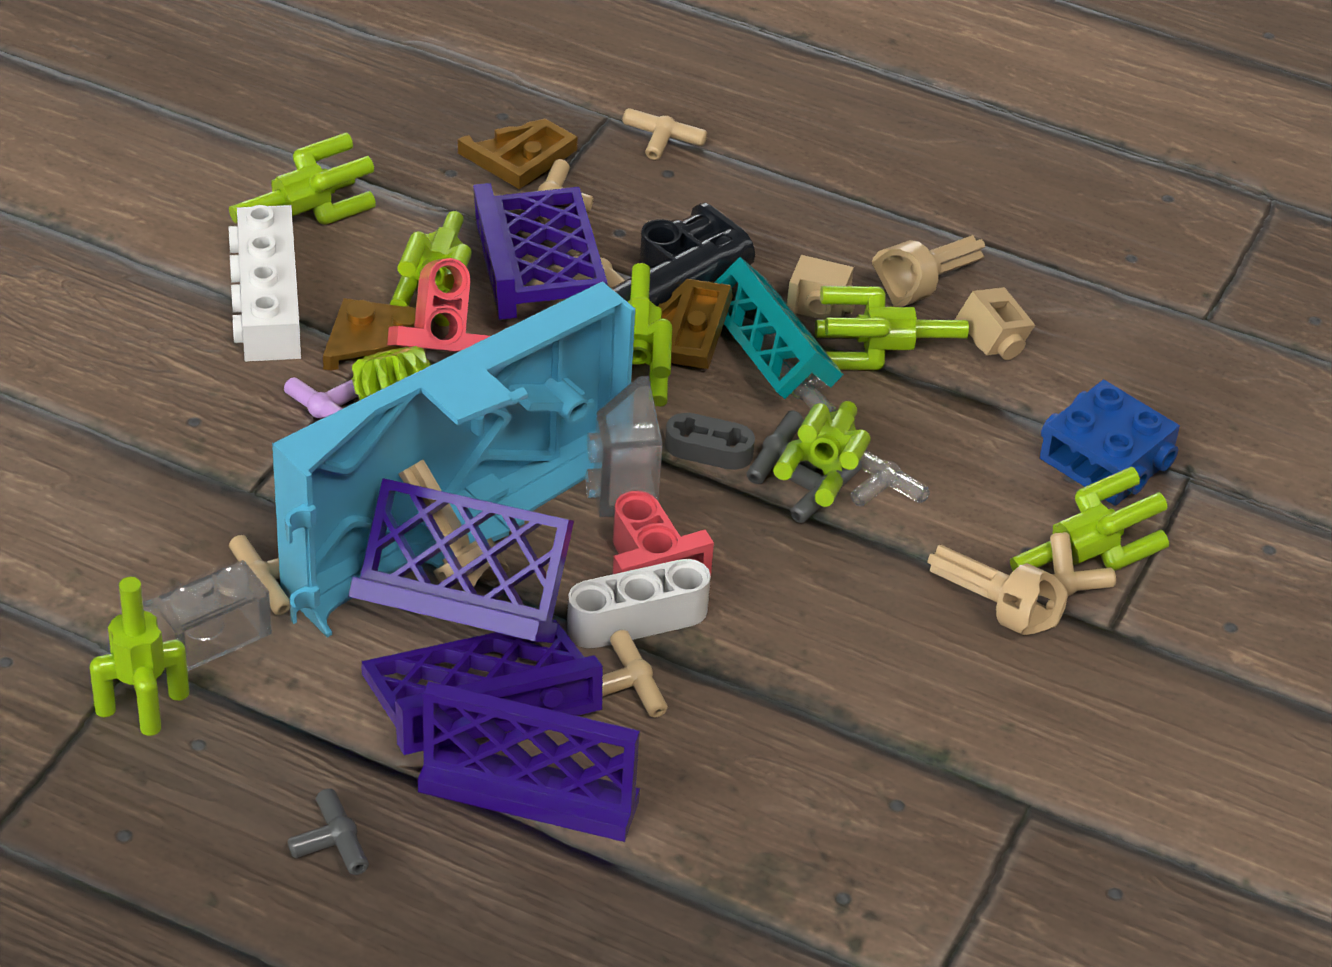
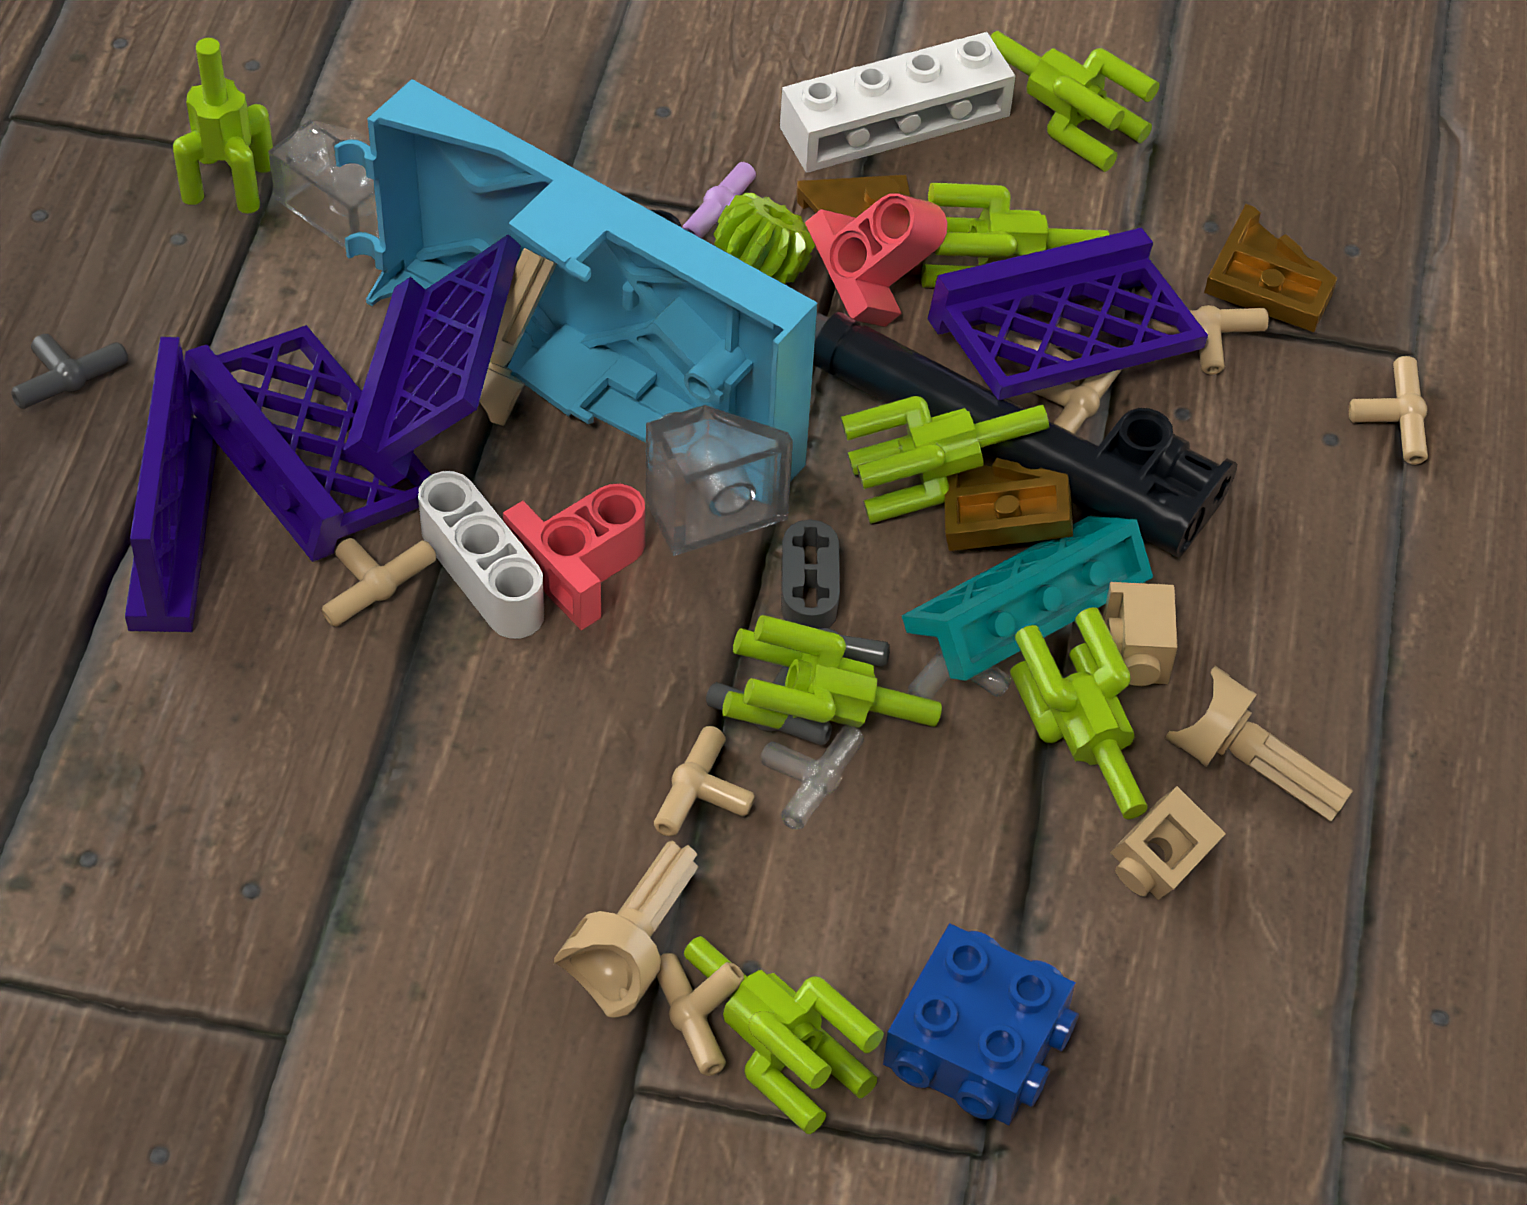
camera: 75 degrees right, 10 degrees up
(878, 538) = (693, 782): none -> tan piece

